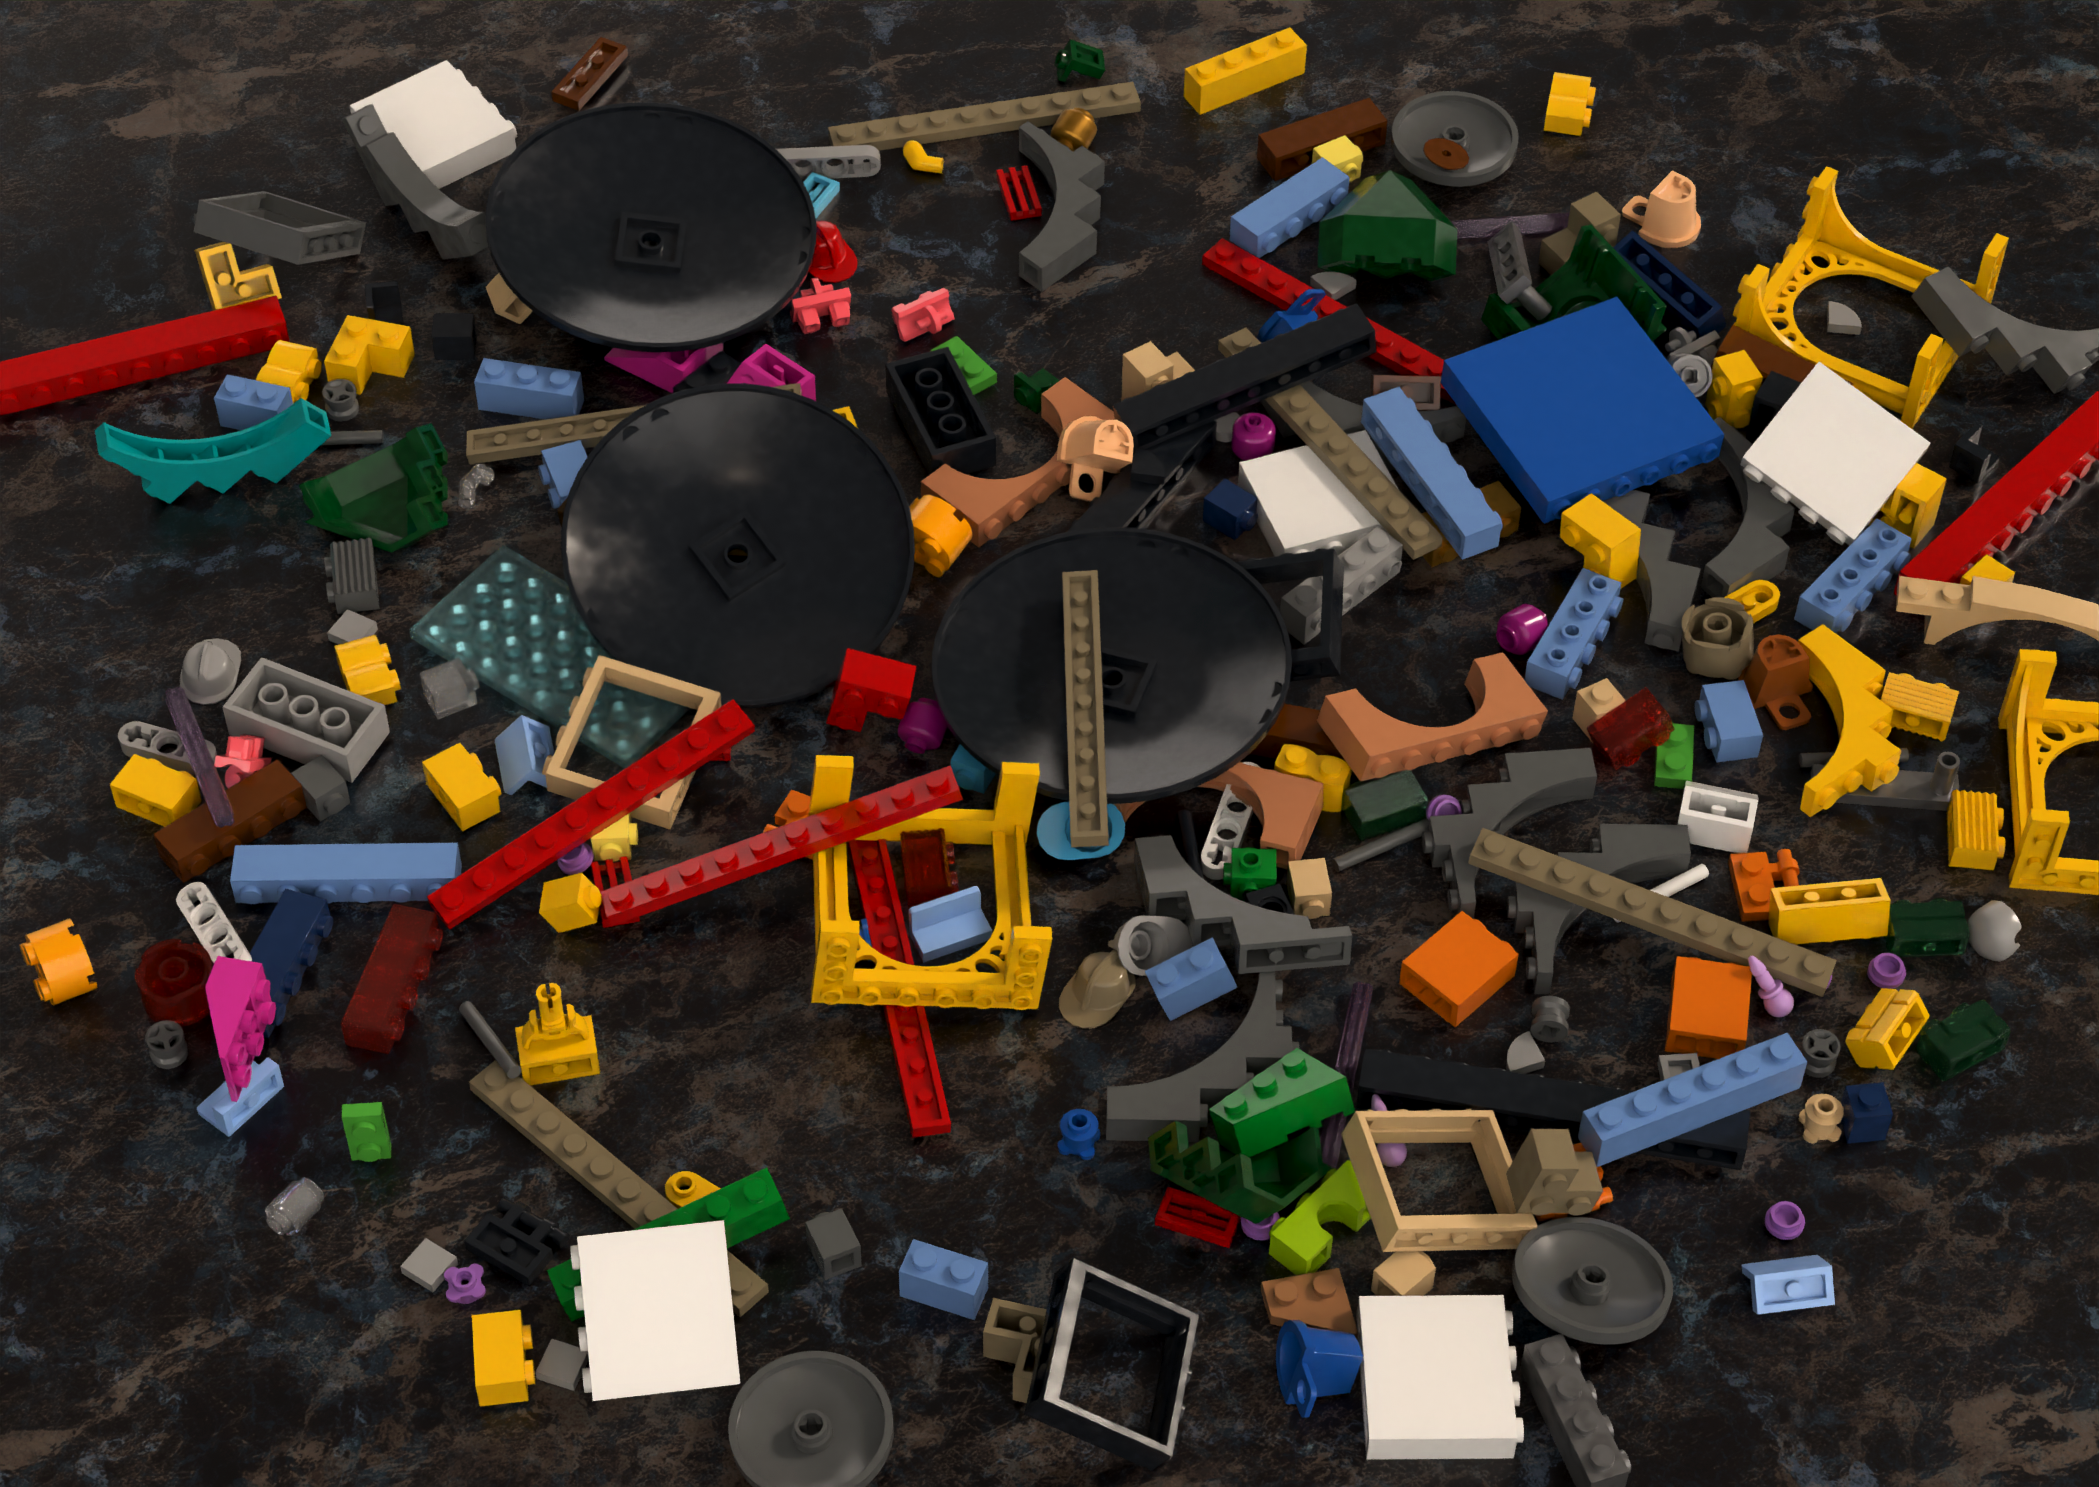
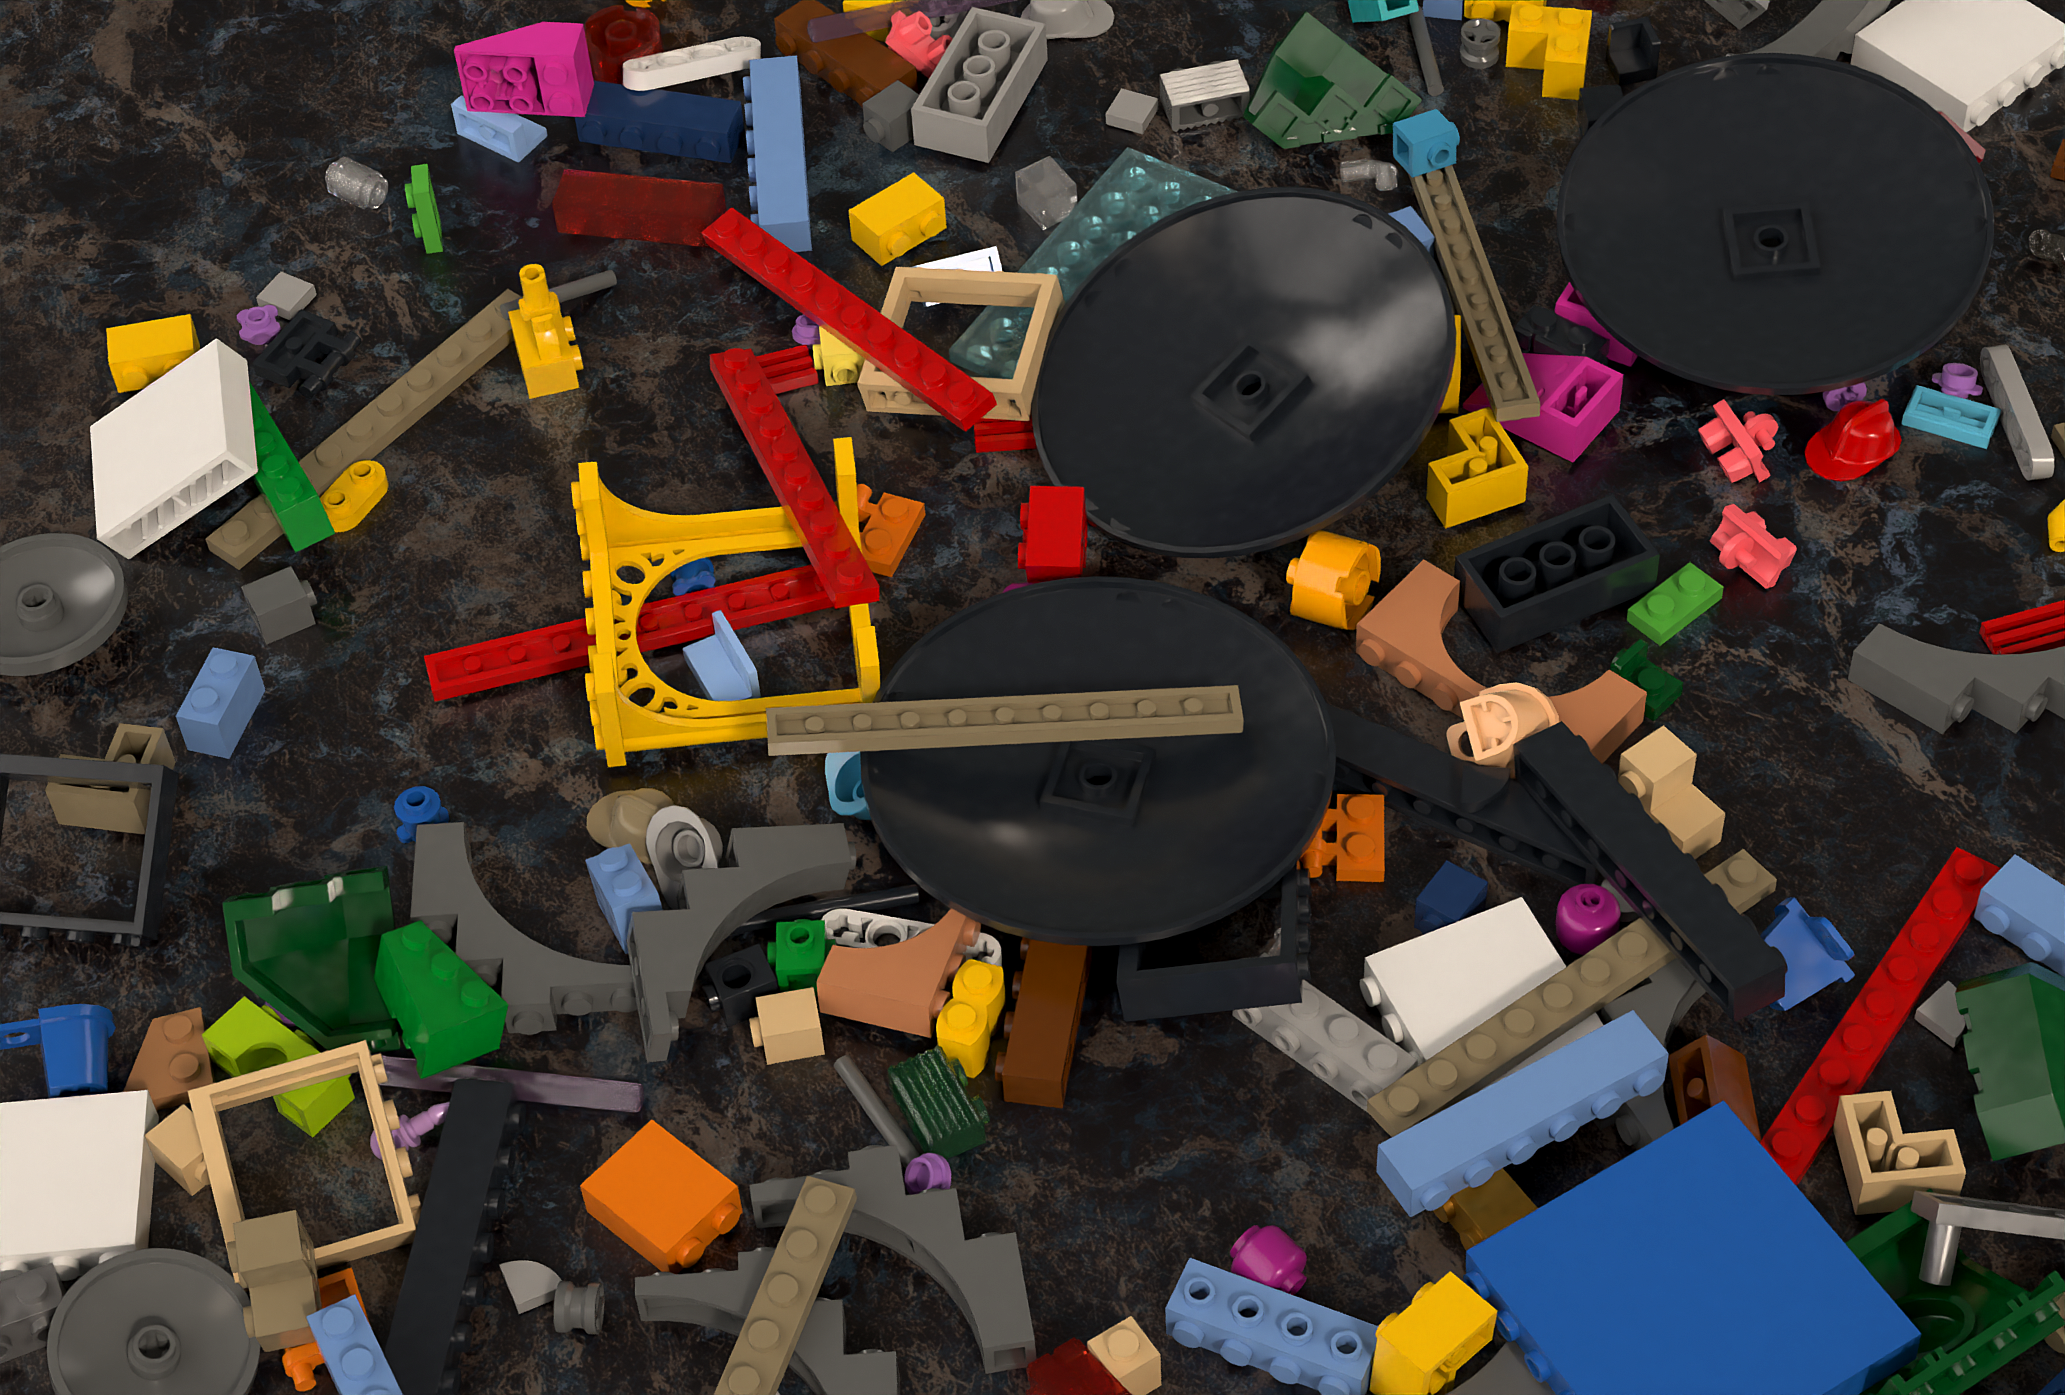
camera: 90 degrees right, 0 degrees up
(366, 669) = (1062, 124): yellow brick -> none
(475, 432) = (1425, 142): none -> dark azure brick
(528, 390) = (1522, 191): medium blue brick -> none
(570, 902) = (737, 325): yellow brick -> none
(926, 866) = (804, 638): clear red brick -> none
(1384, 745) = (1102, 1236): nougat arch -> none
(1455, 321) = (1884, 1163): none -> tan brick

